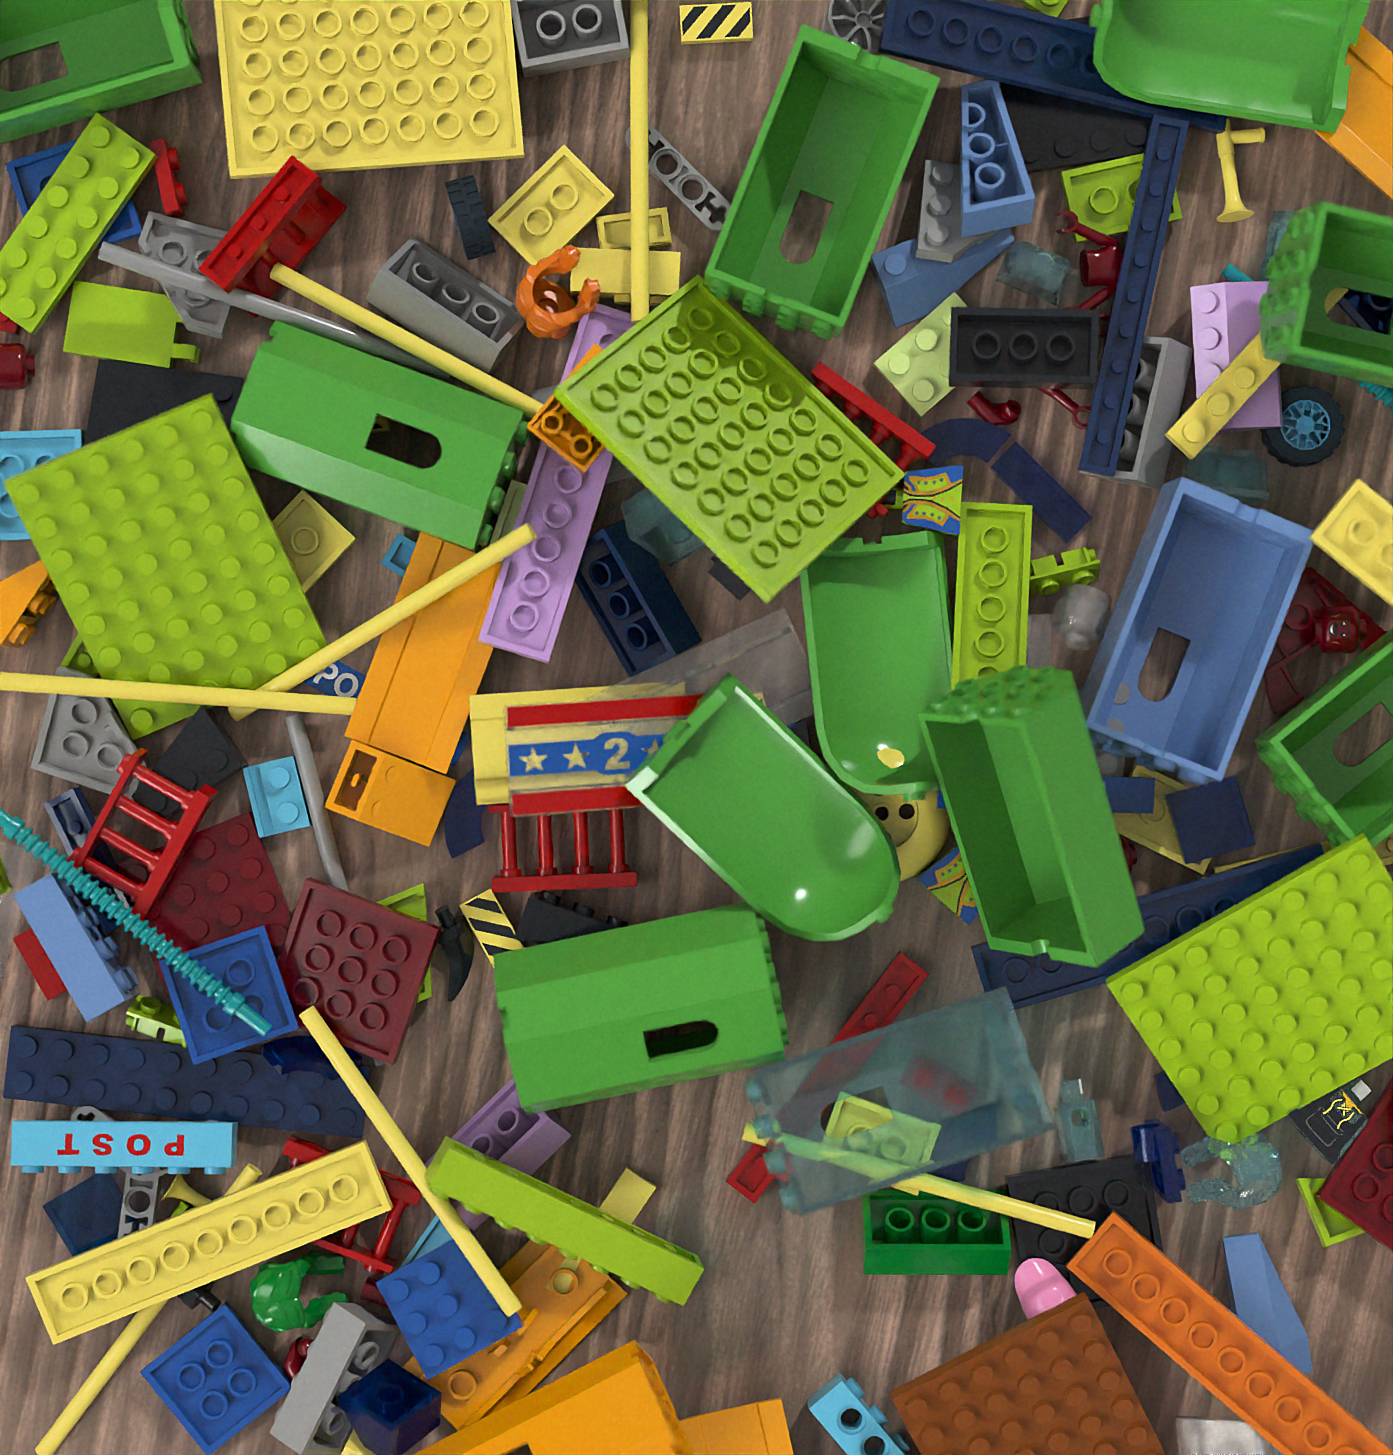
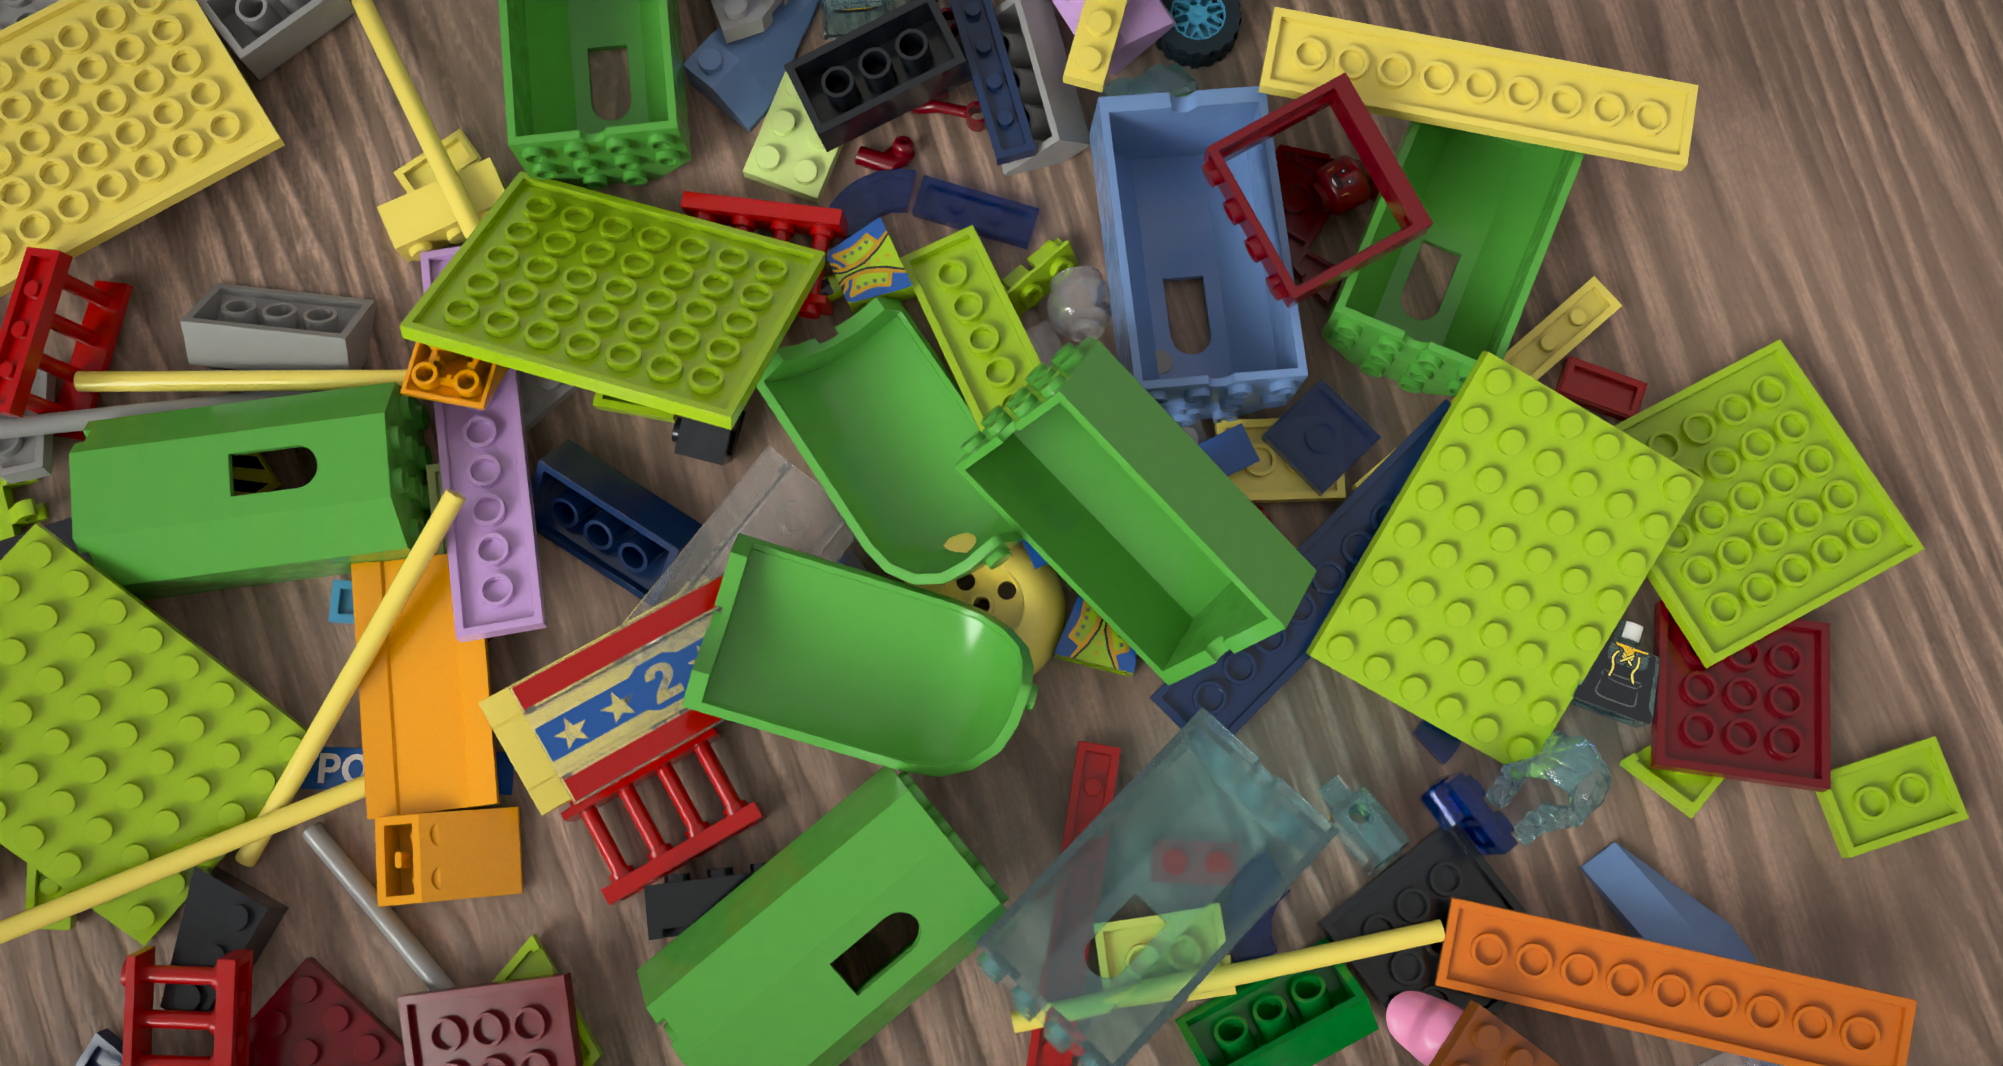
camera: 25 degrees left, 10 degrees down
(83, 740) = (78, 972): light grey plate -> none
(277, 796) = (332, 926): medium azure plate -> none
(311, 538) = (244, 635): light yellow plate -> none
(458, 946) = (605, 984): black bar -> none
(463, 818) = (547, 844): clear blue tile -> none
(470, 217) = (257, 228): black wheel -> none
(490, 924) = (624, 939): light yellow tile -> none
(548, 305) = (379, 280): orange hair -> none
(551, 207) = (343, 186): light yellow plate -> none
(658, 528) = (607, 429): clear light blue slope -> none
(684, 173) = (462, 91): light grey beam -> none
(1366, 649) = (1373, 152): none -> dark red window

